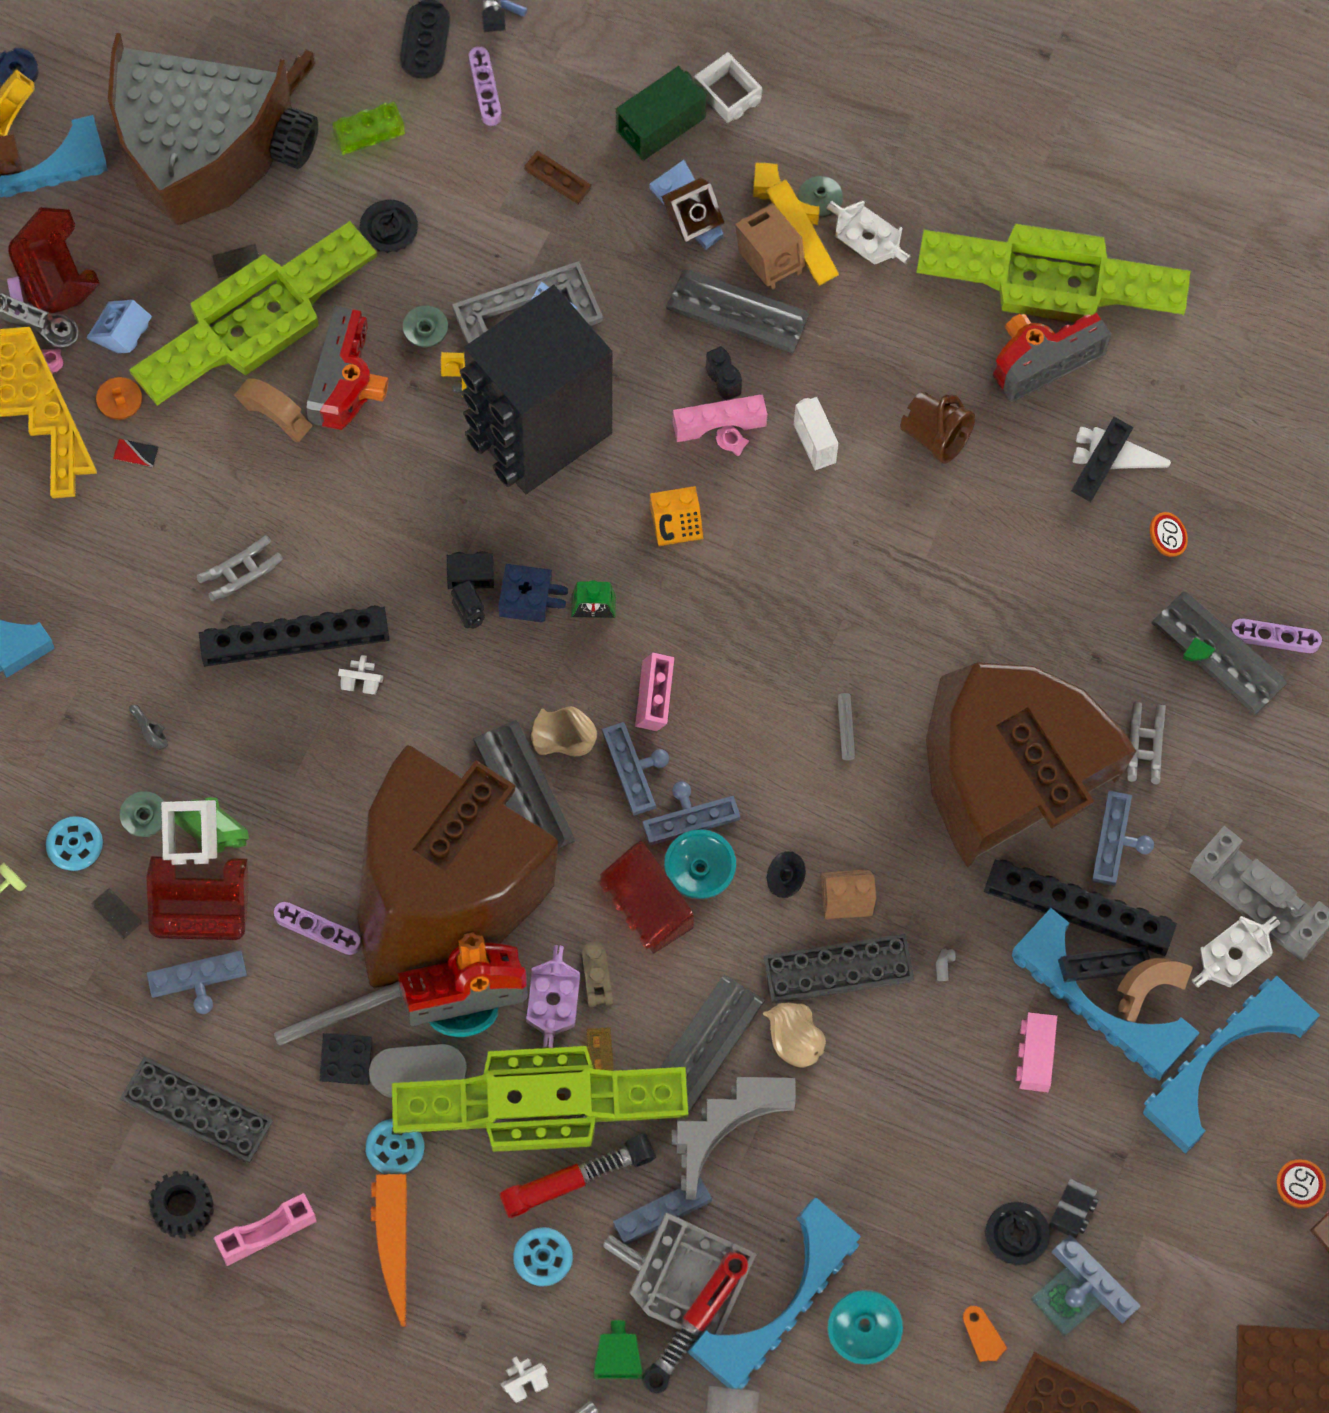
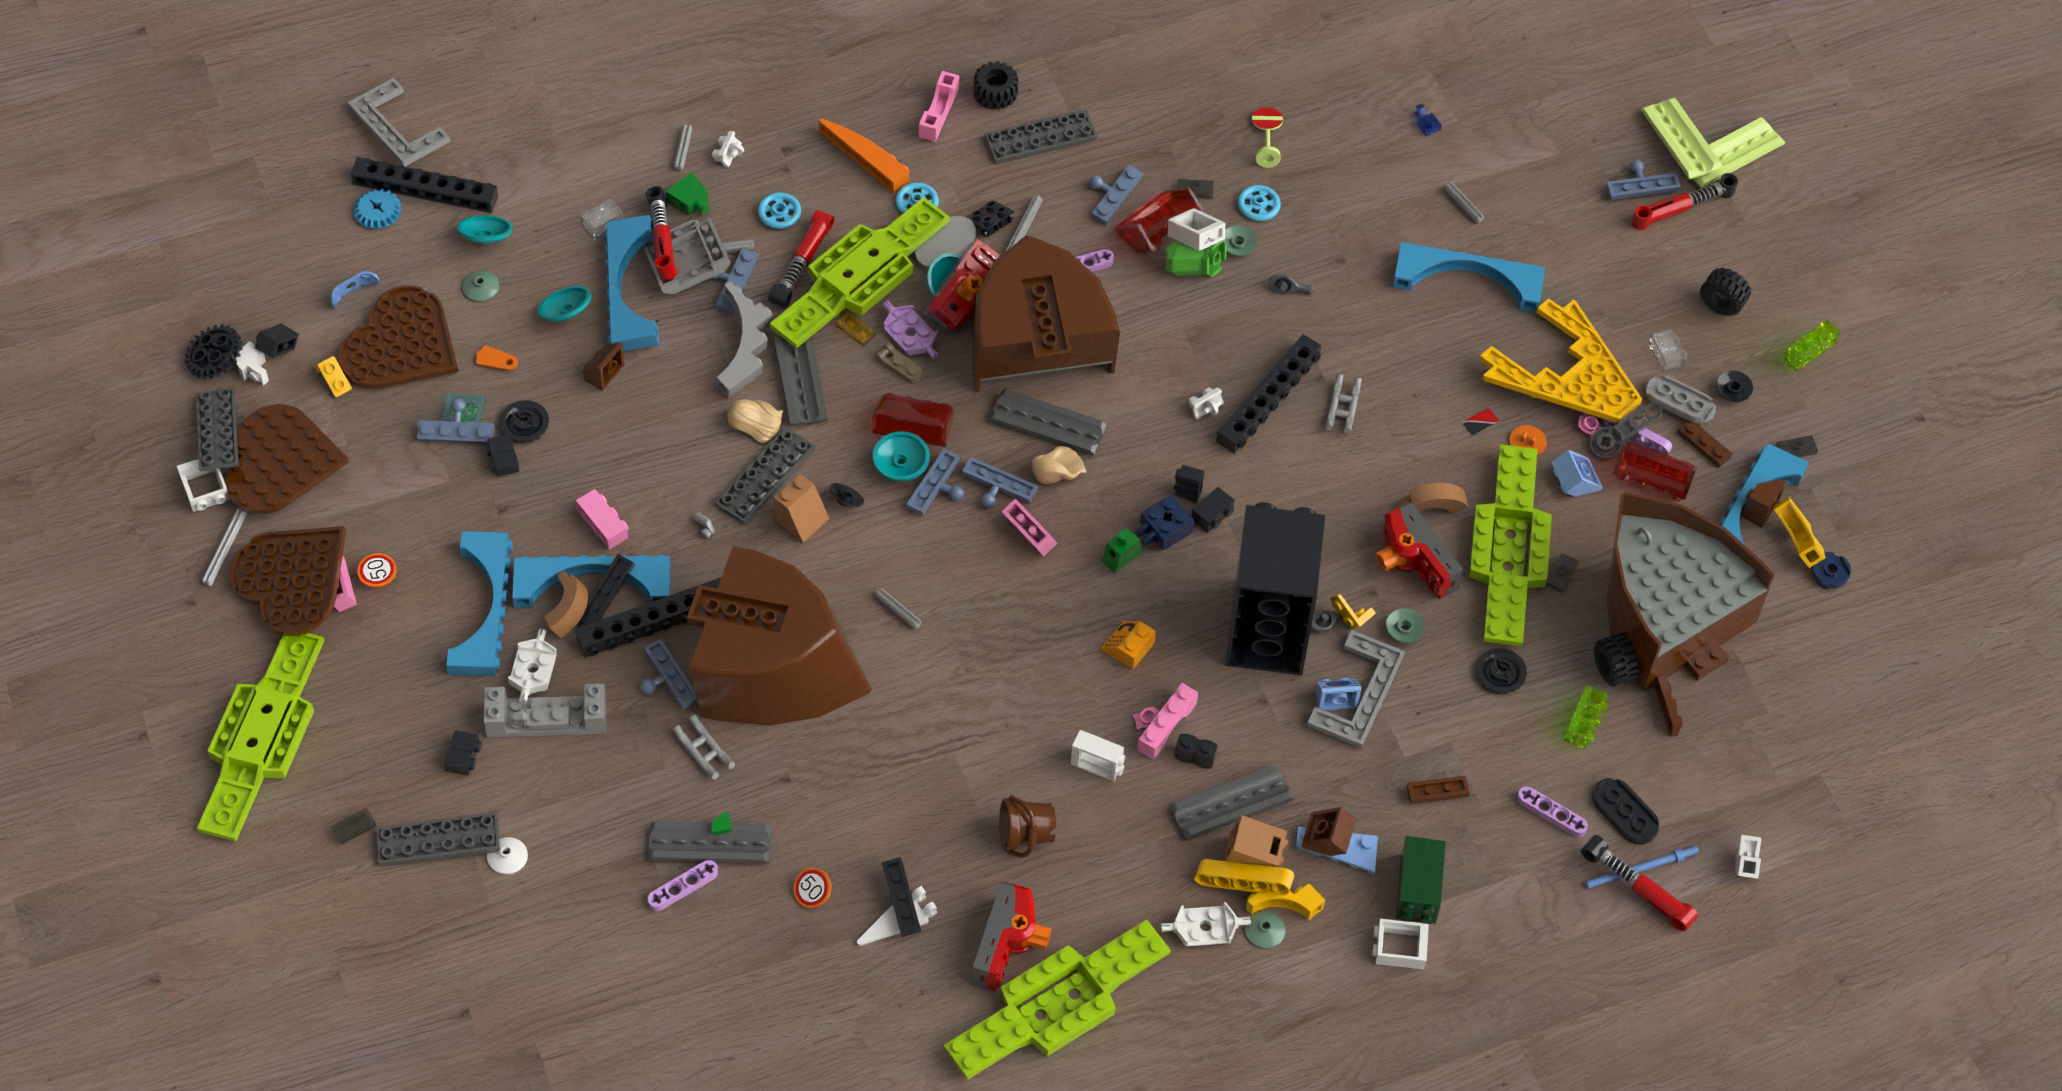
camera: 135 degrees right, 10 degrees down
(888, 1220) = (604, 365): none -> reddish brown slope

